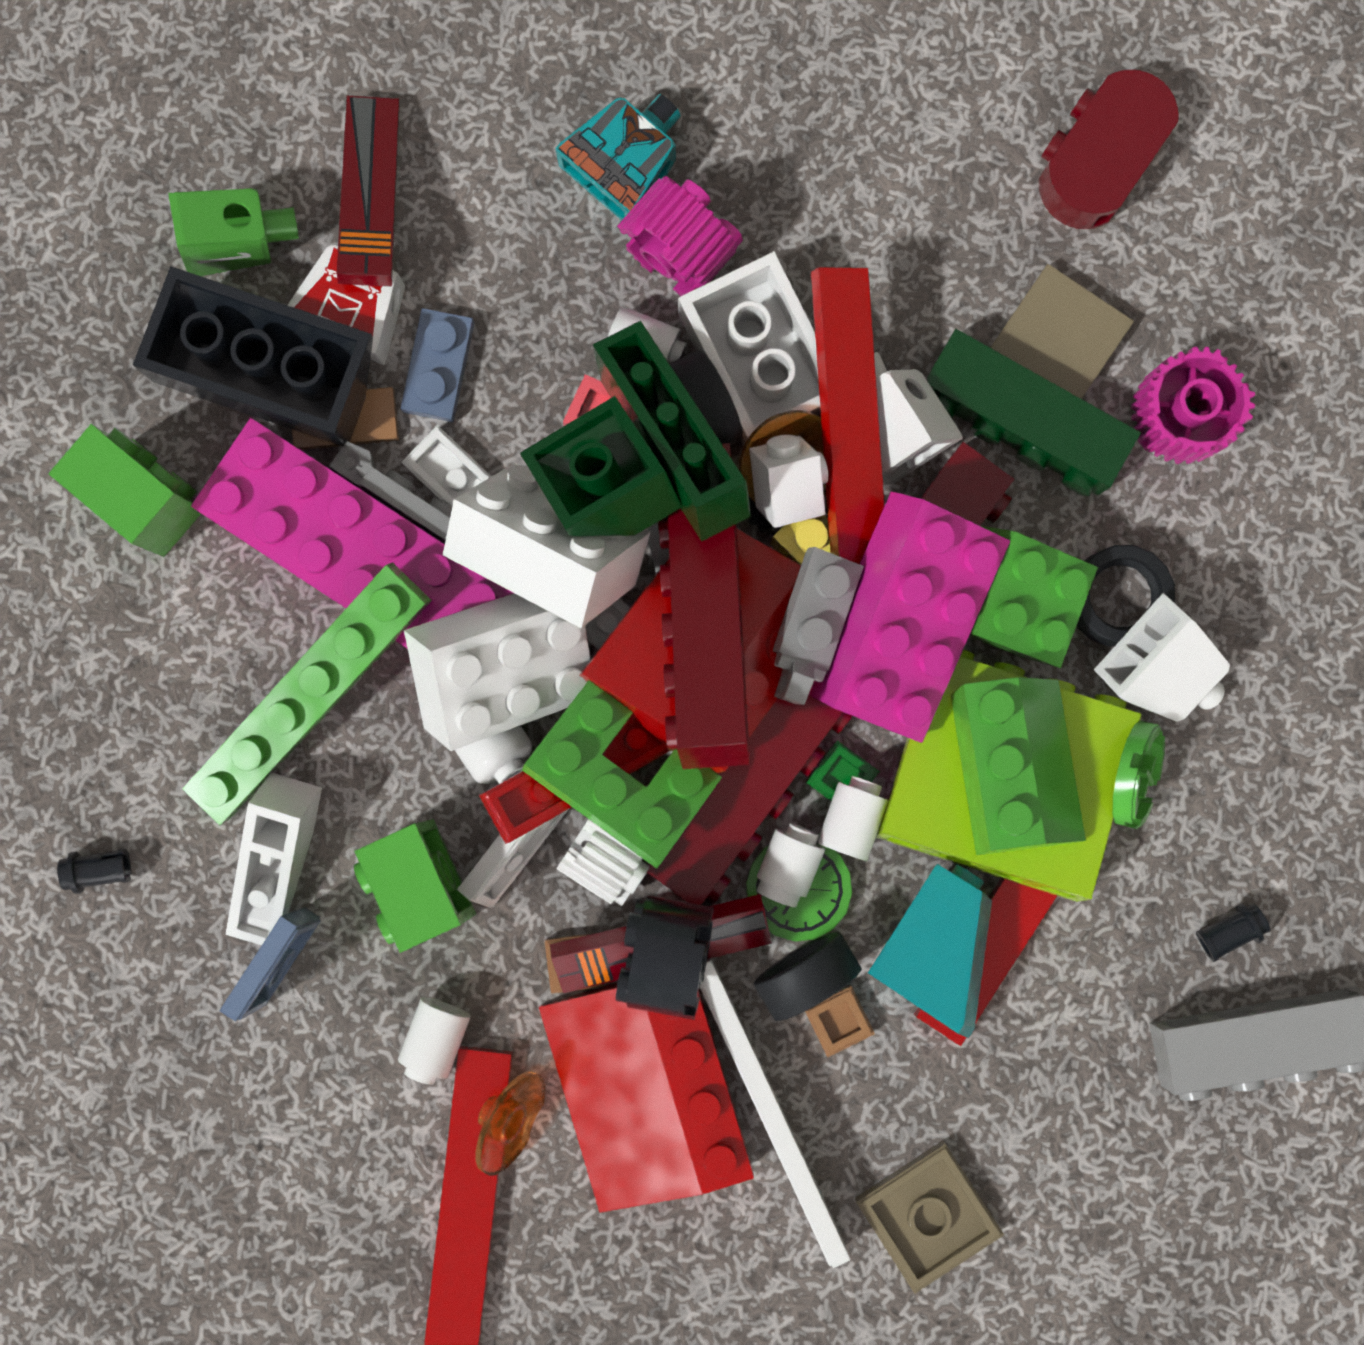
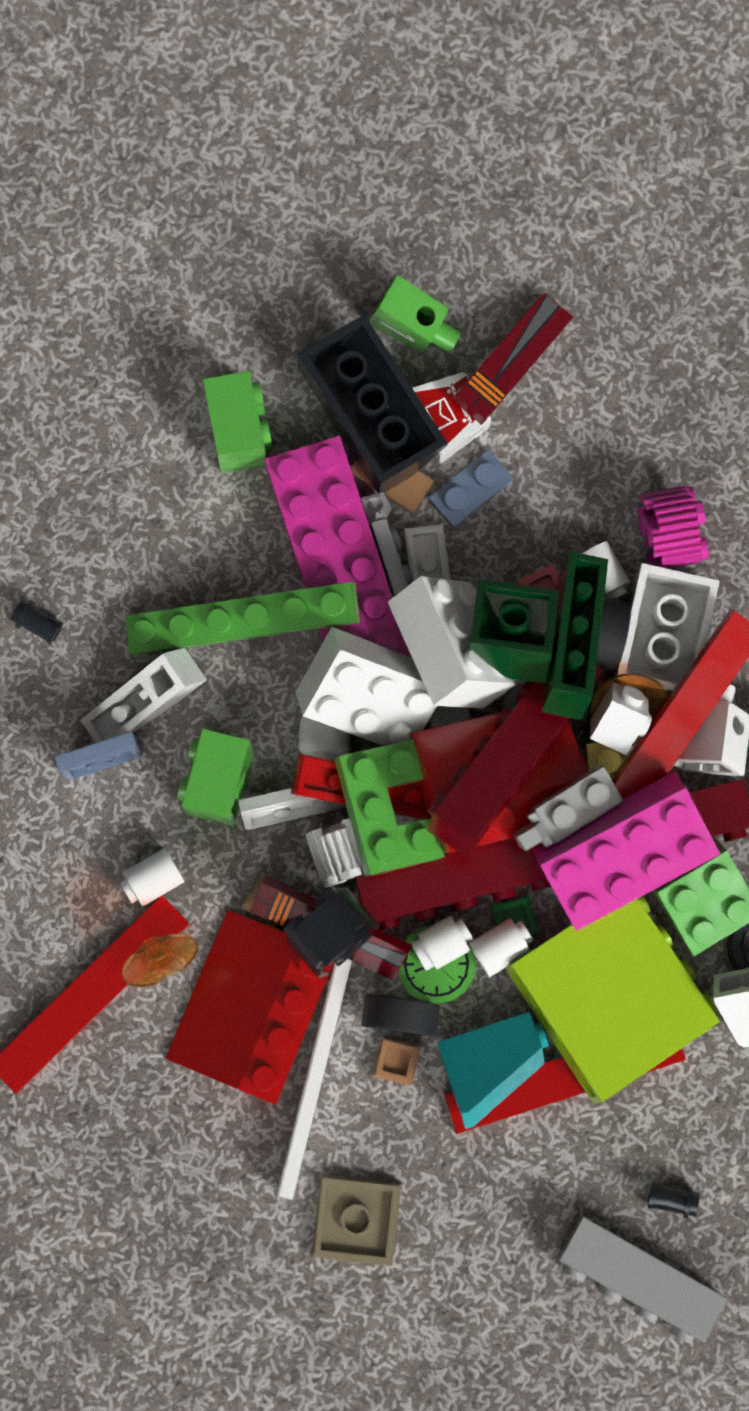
camera: 35 degrees right, 5 degrees down
(621, 152) = (679, 452): torso -> none
(1017, 764) = (622, 989): bright green slope -> none
(1138, 768) = (688, 1054): bright green tile -> none

